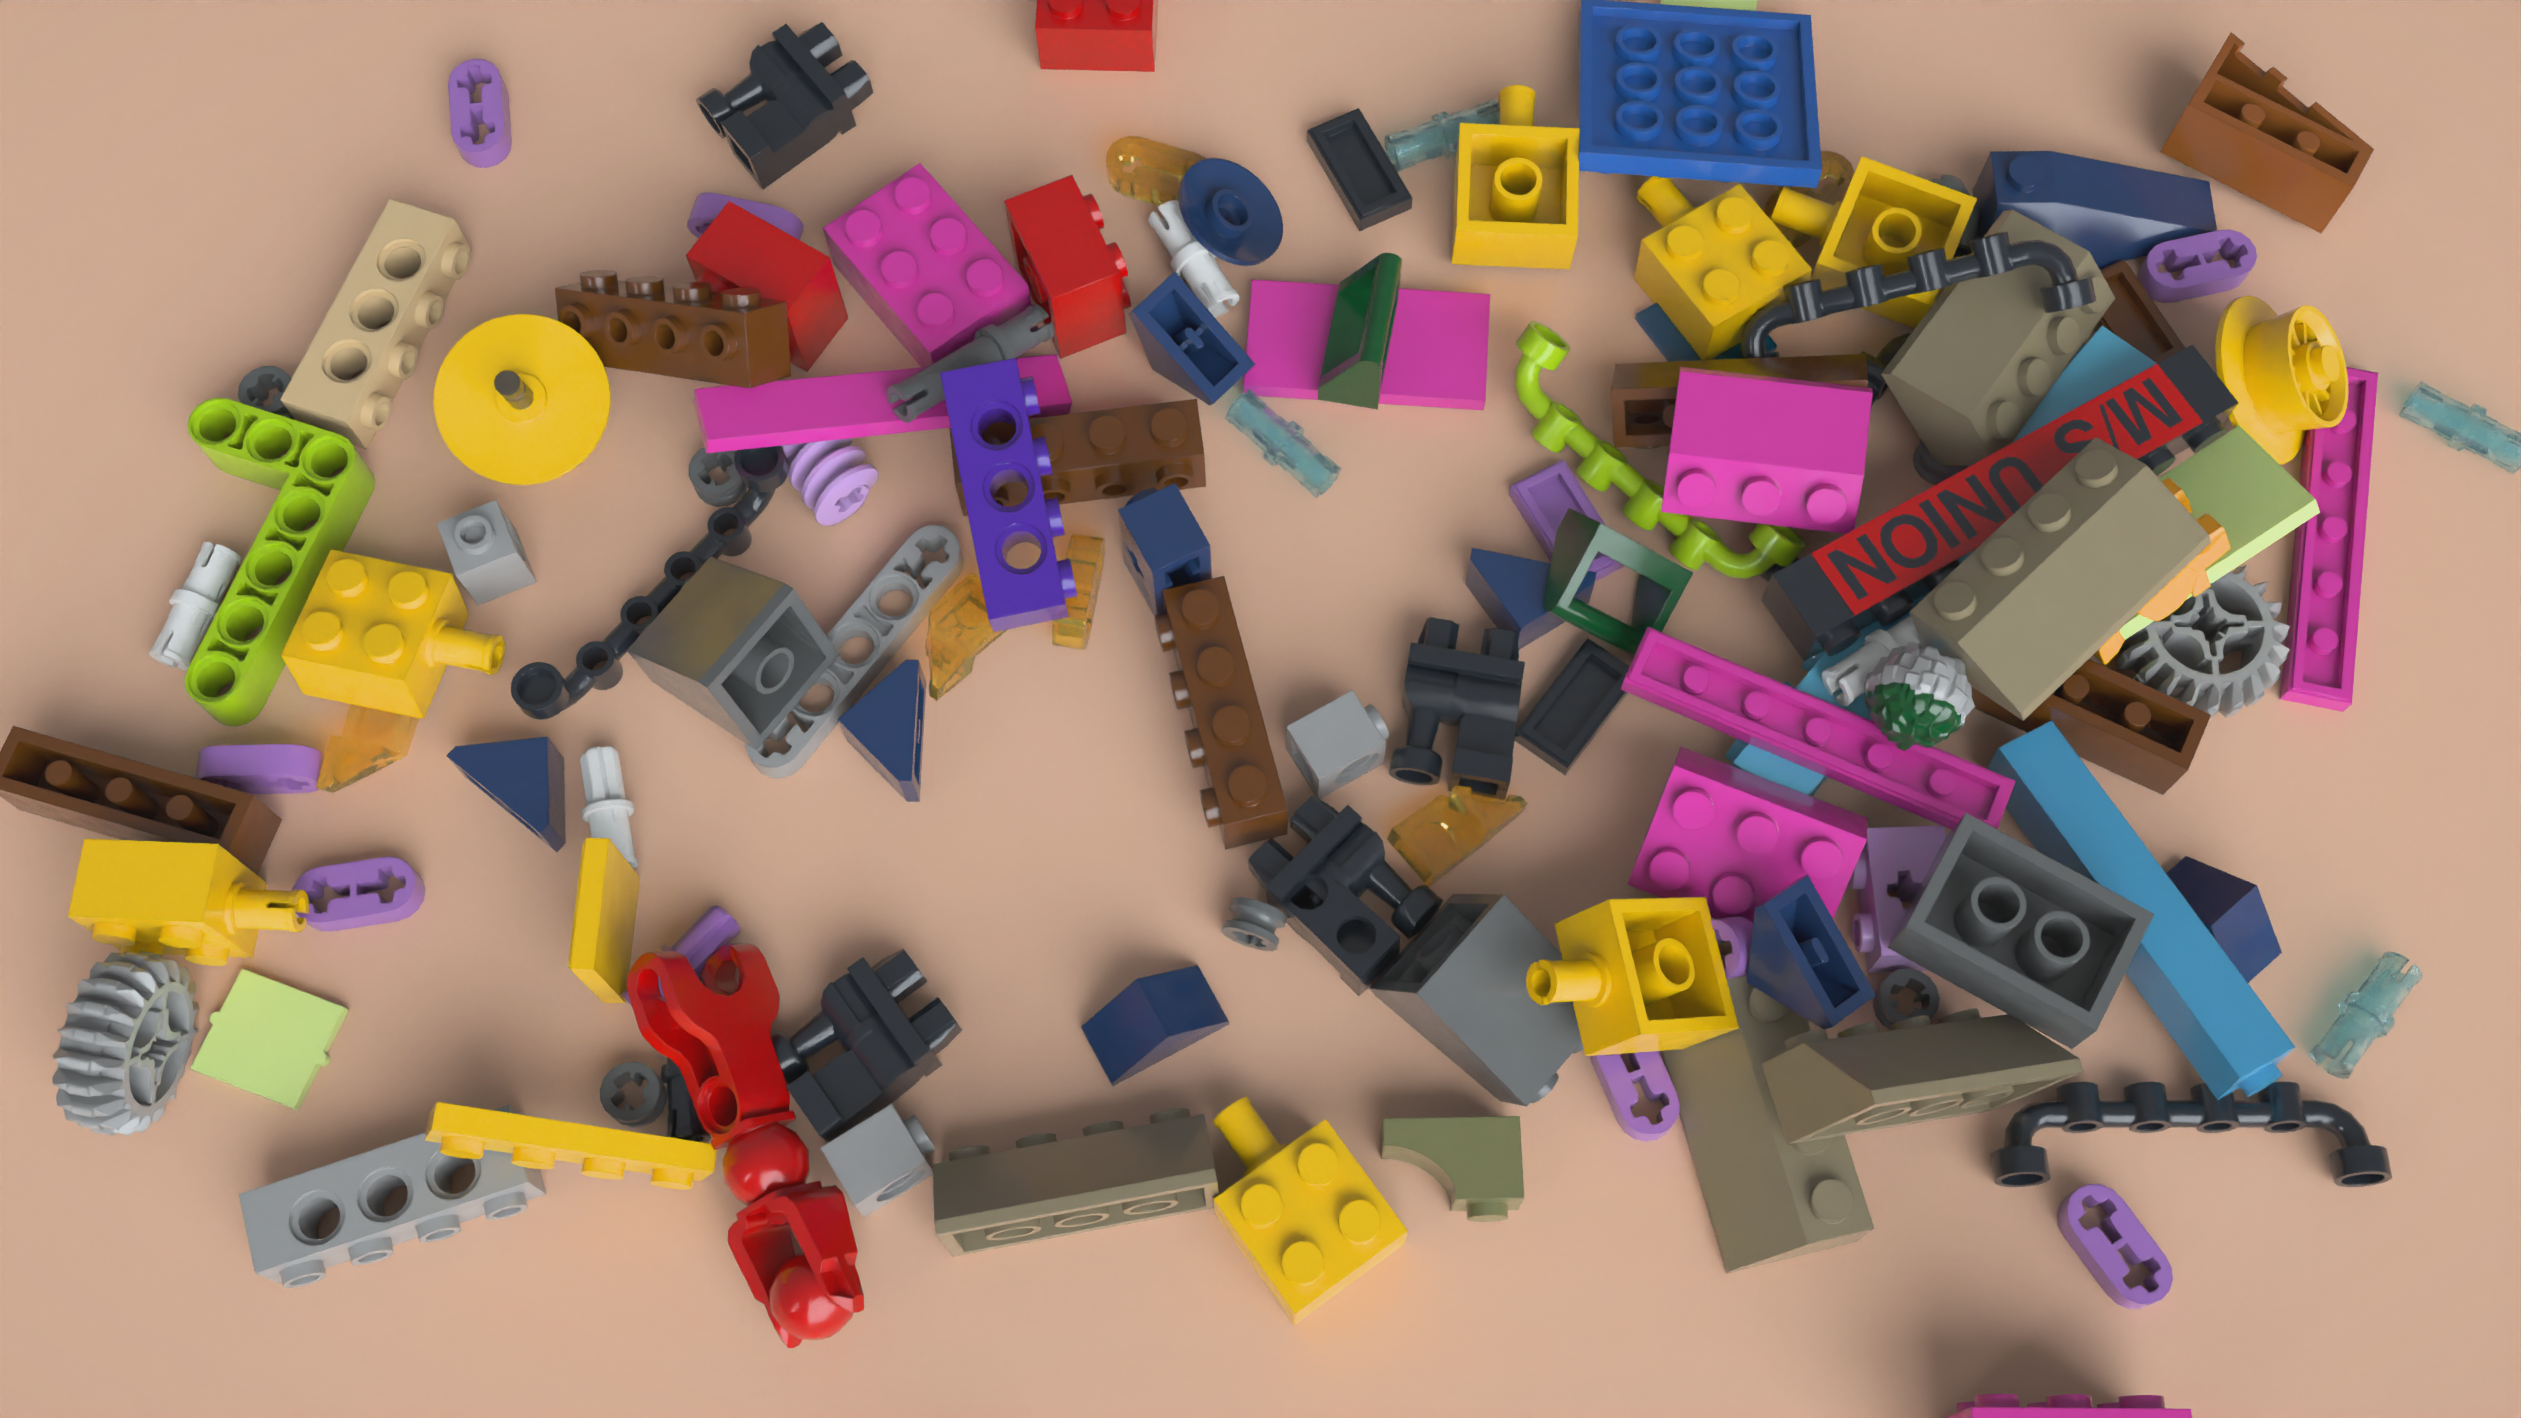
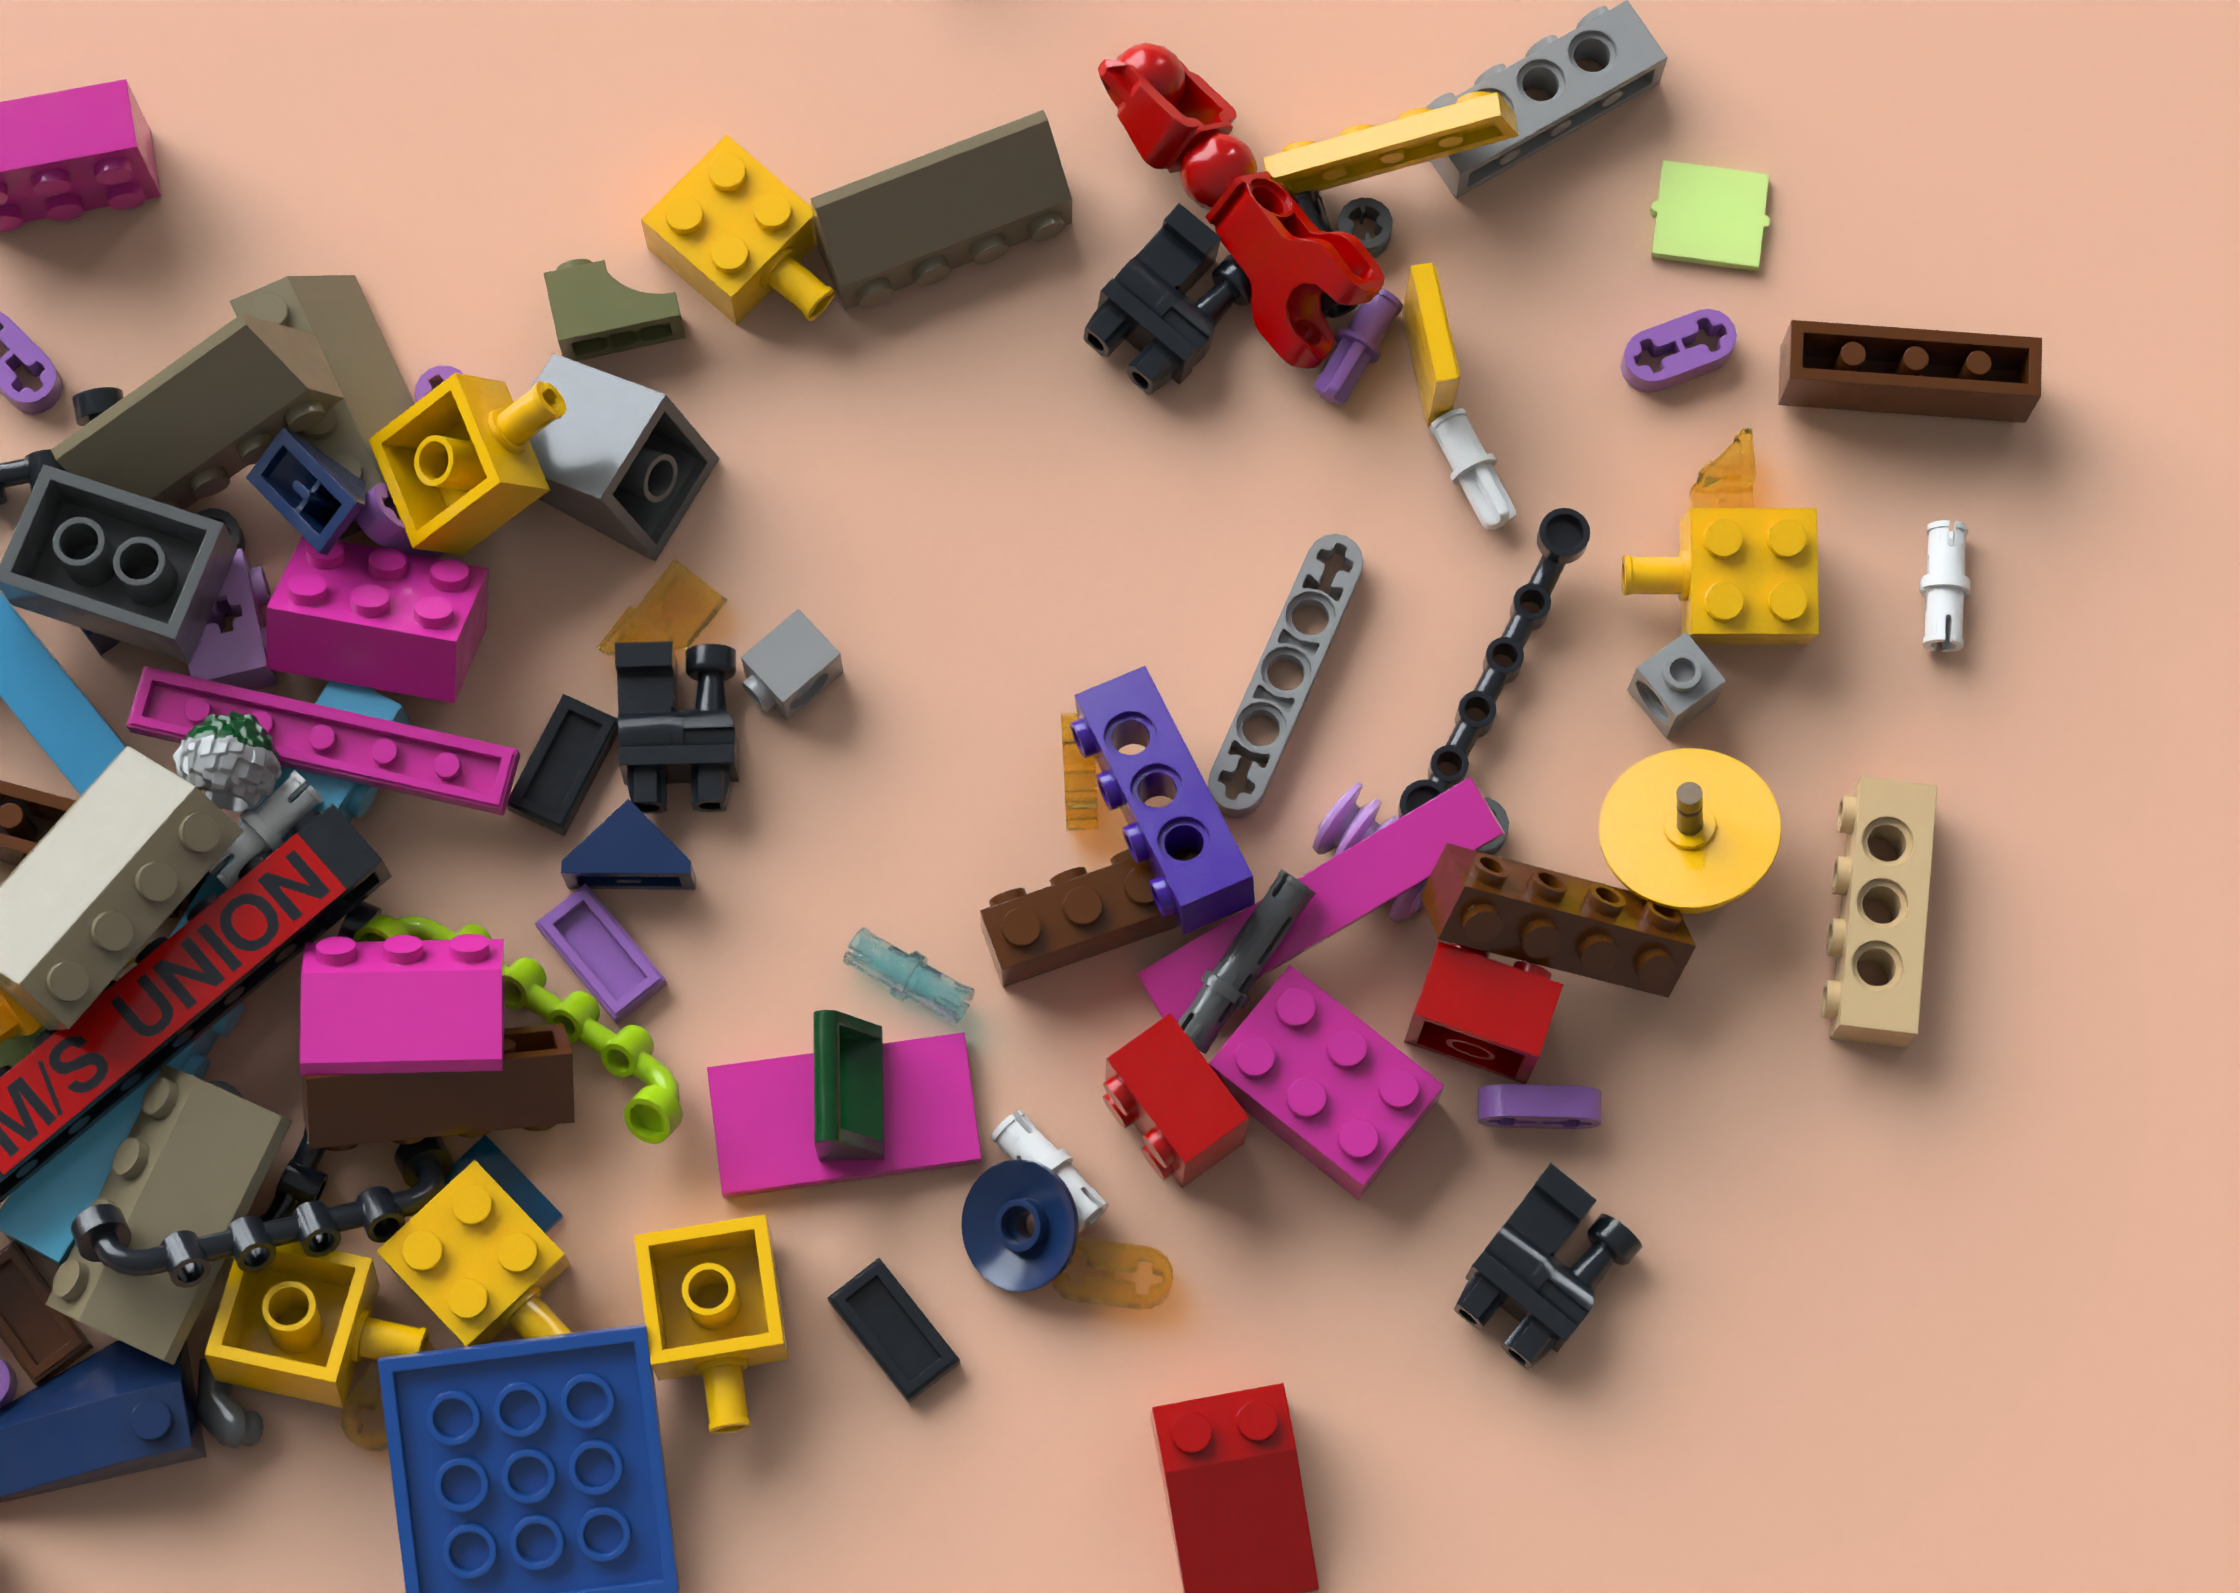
camera: 165 degrees right, 5 degrees up
(125, 1042) = (1818, 157): light grey gear -> none
(178, 900) = (1823, 276): yellow brick -> none
(256, 387) = (1983, 828): dark grey bush -> none
(261, 767) = (1813, 437): medium lavender beam -> none
(279, 548) = (1879, 657): lime beam -> none
(468, 115) = (1891, 1187): medium lavender beam -> none
(522, 779) = (1562, 469): dark blue slope -> none
(735, 649) = (1400, 622): dark grey slope -> none
(880, 1159) = (1124, 209): light grey brick -> none
(889, 728) = (1226, 591): dark blue slope -> none
(956, 635) = (1192, 700): clear yellow slope -> none
(1153, 1021) = (907, 382): dark blue slope -> none
(1162, 543) = (997, 805): dark blue brick -> none
(1188, 341) = (1023, 1050): dark blue slope -> none
(1224, 712) = (907, 672): reddish brown brick -> none
(1254, 924) = (835, 482): dark grey bush -> none
(1323, 890) = (777, 527): black hips -> none
(1436, 136) = (806, 1387): clear light blue pin -> none
(1574, 550) = (548, 895): dark green tile -> none

